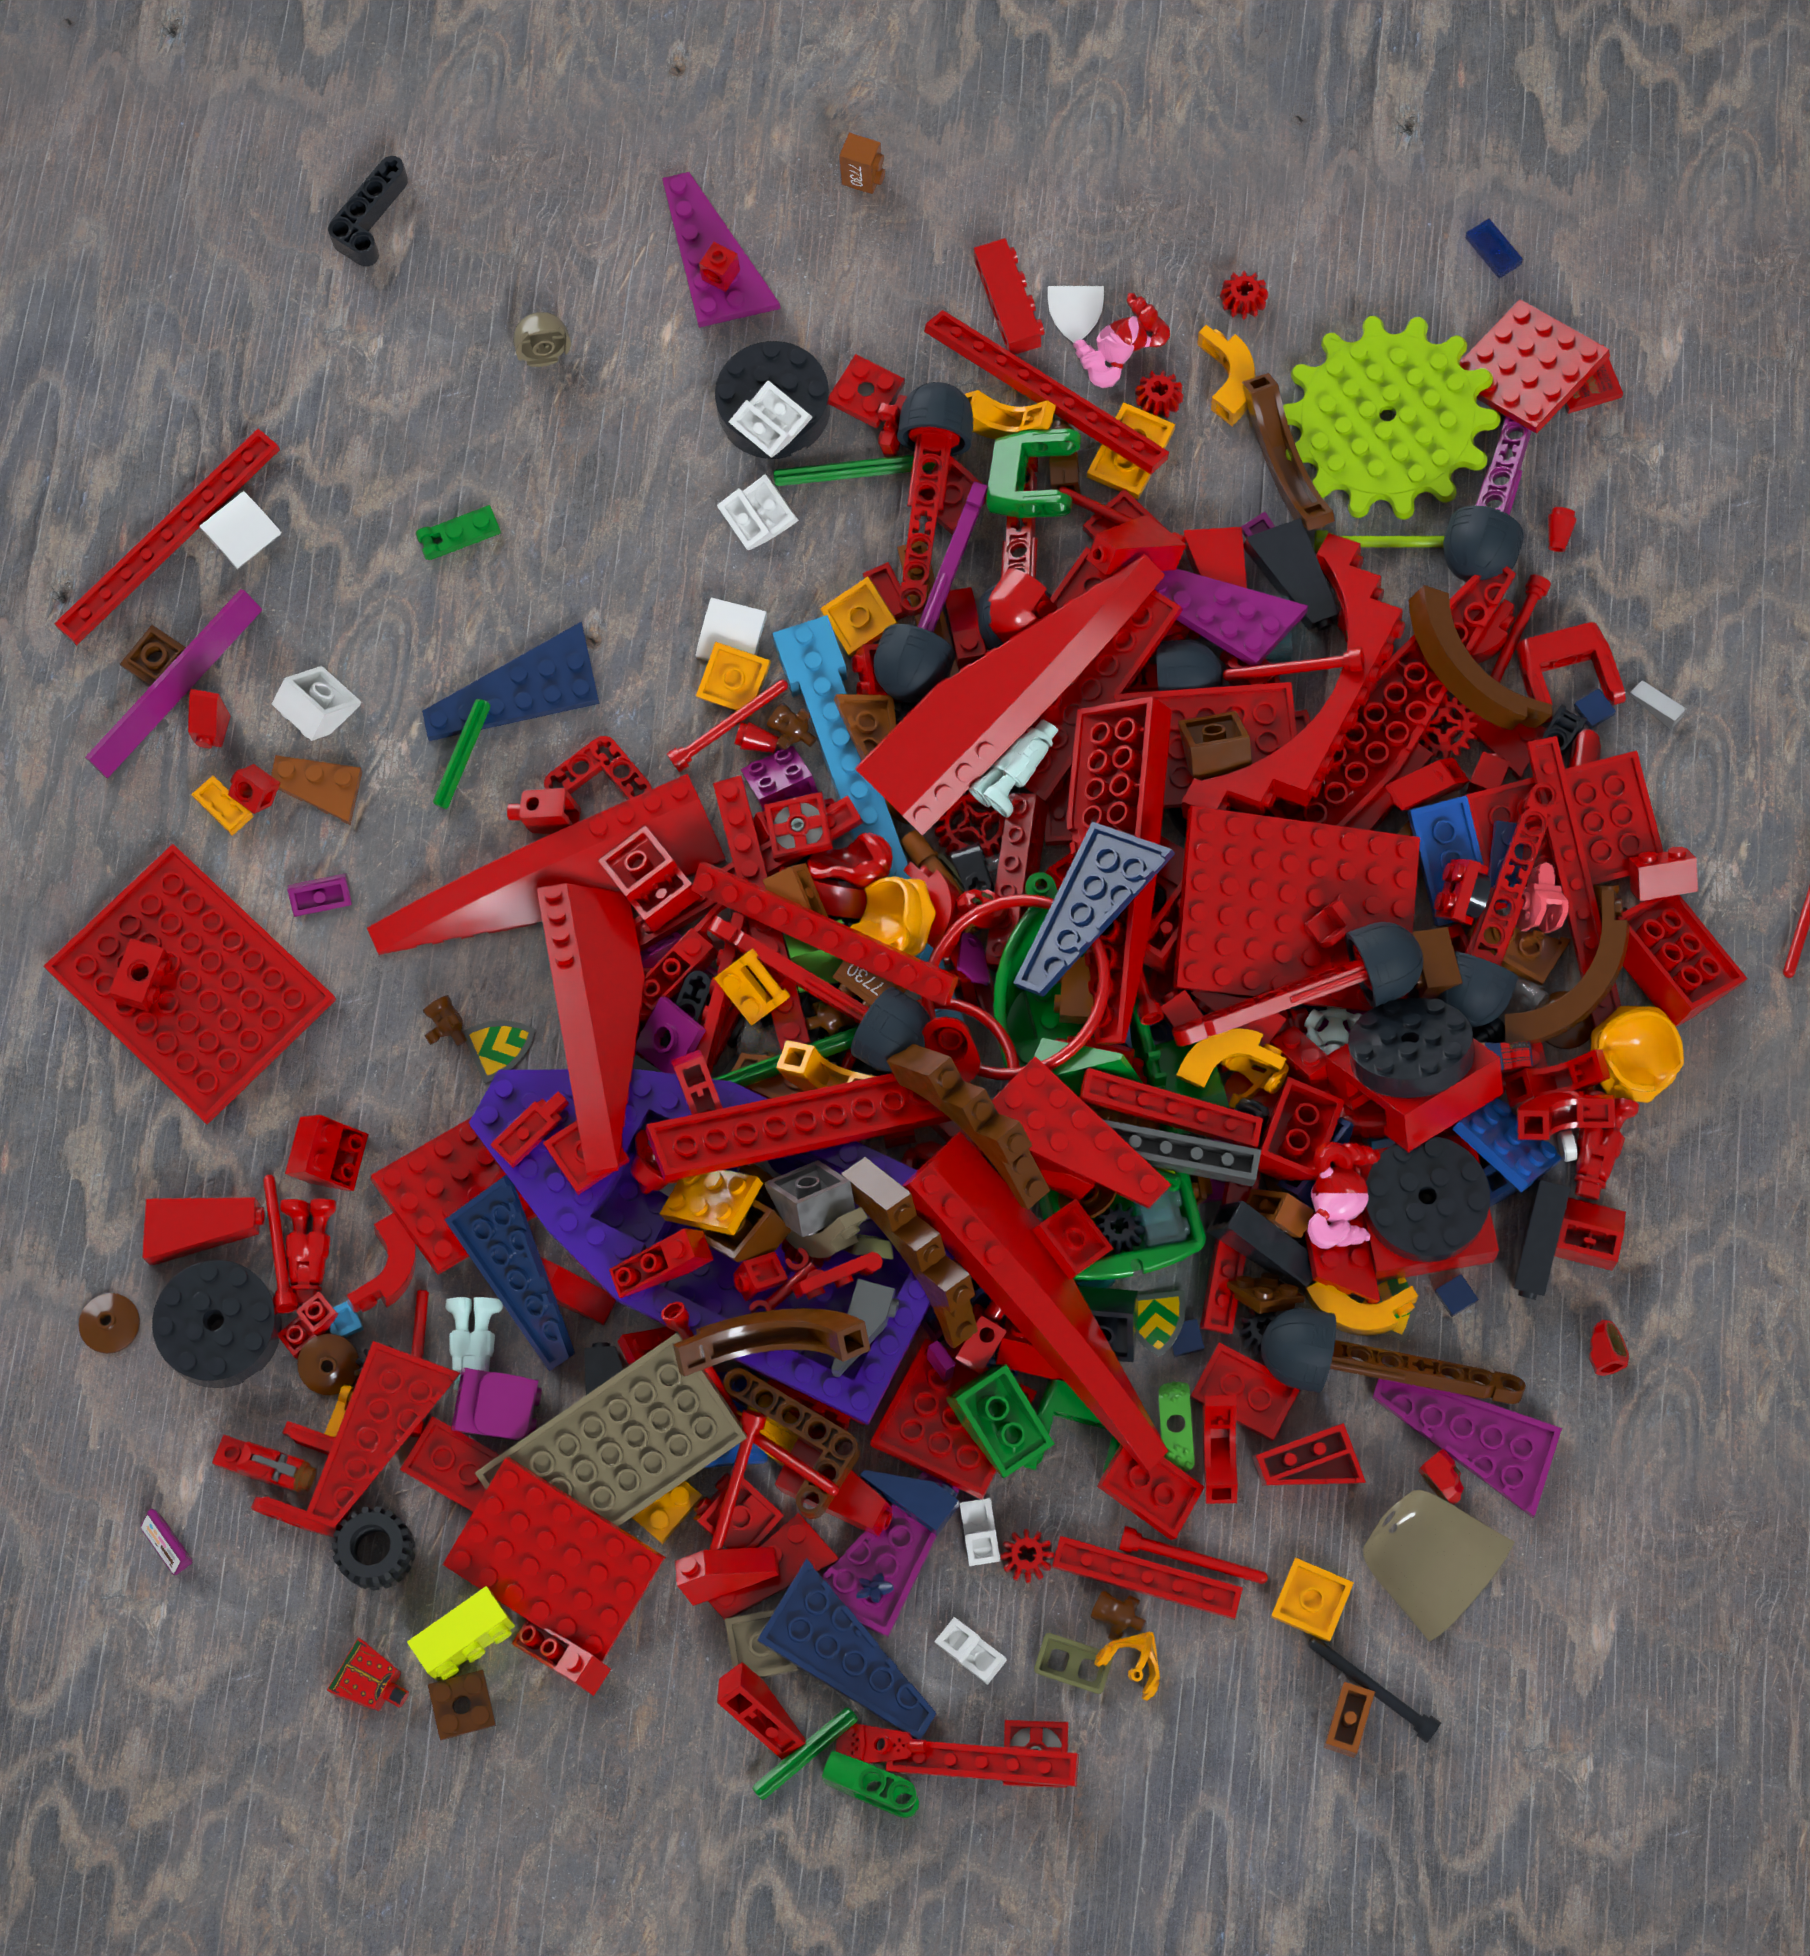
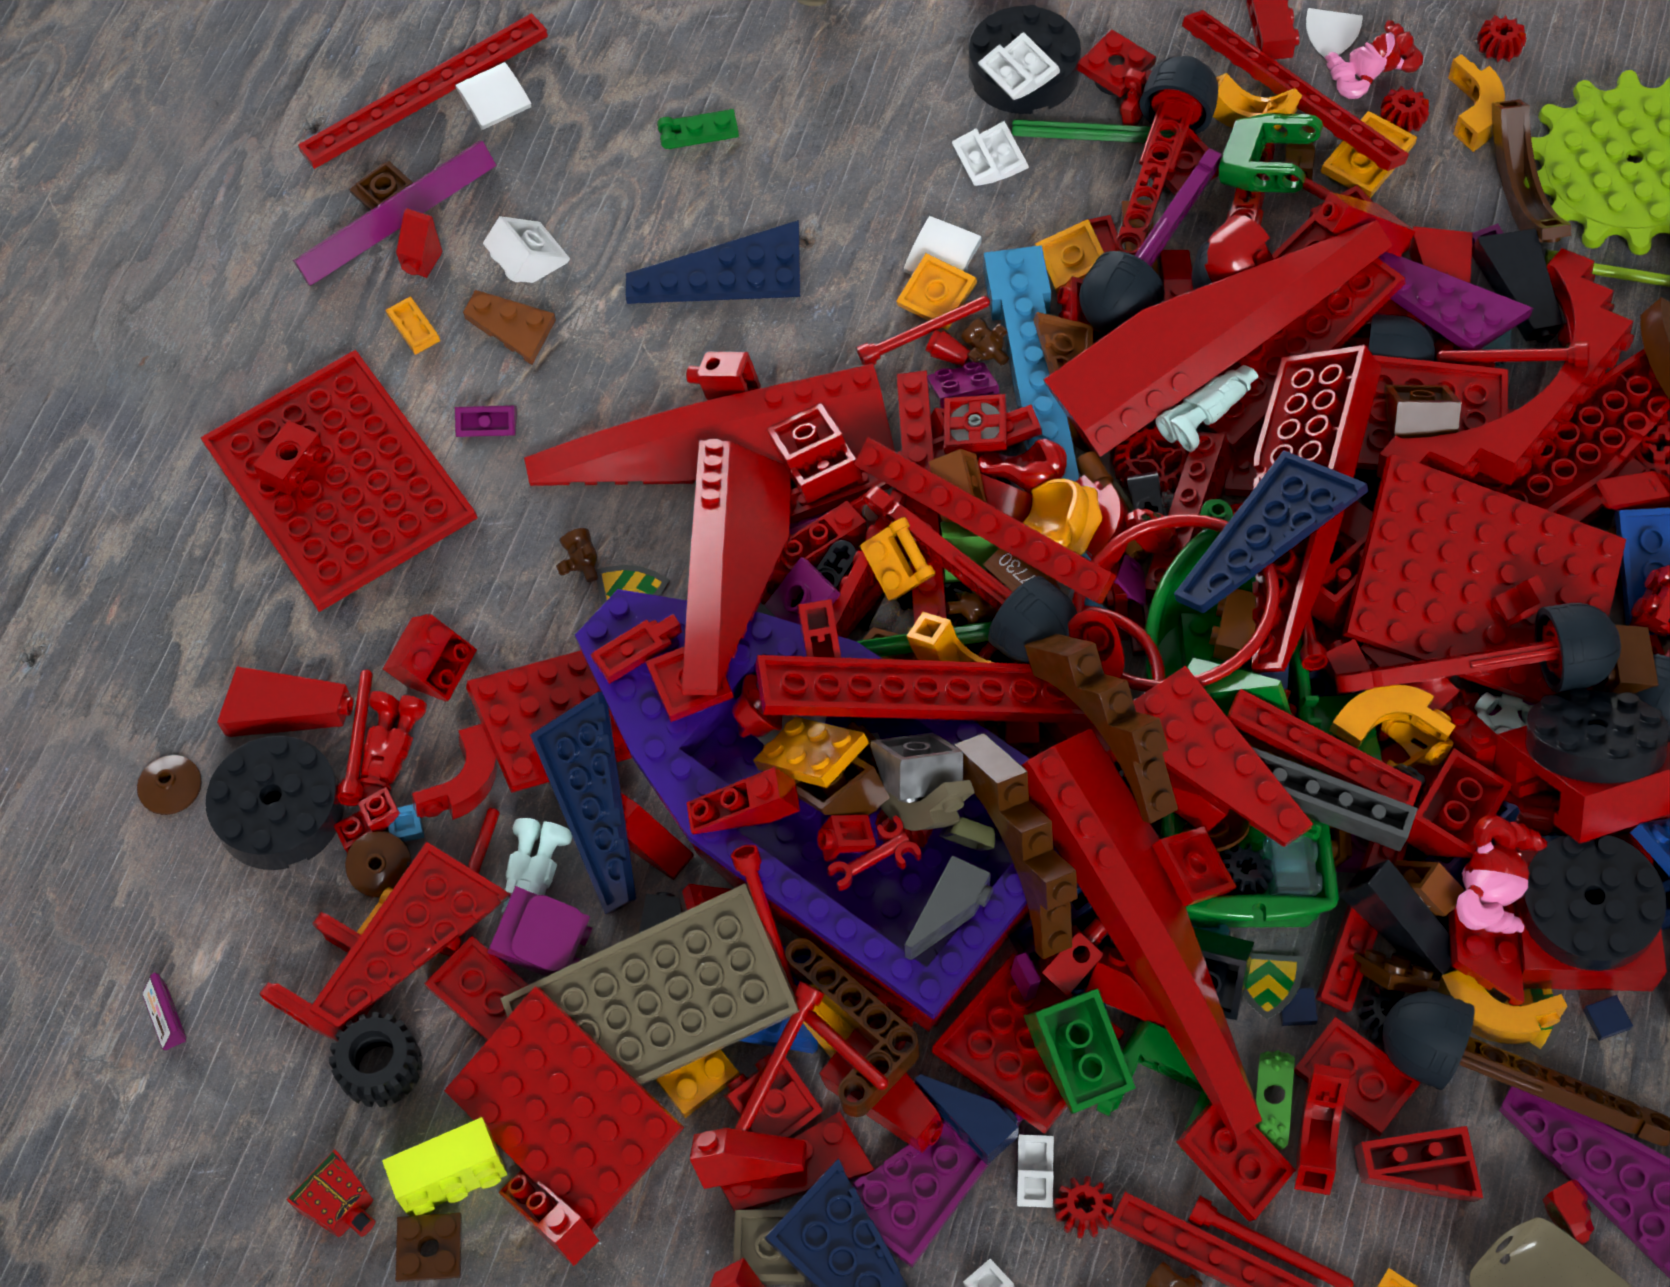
camera: 10 degrees right, 10 degrees down
(253, 788) = (446, 313): red brick -> none
(264, 1464) = (285, 952): red plate -> none
(461, 753) = (654, 315): green axle -> none
(597, 763) = (787, 347): red beam -> none
(773, 1330) = (860, 894): reddish brown arch -> none
(838, 1275) = (933, 849): red plate -> none
(874, 1588) = (907, 1207): dark blue plant -> none

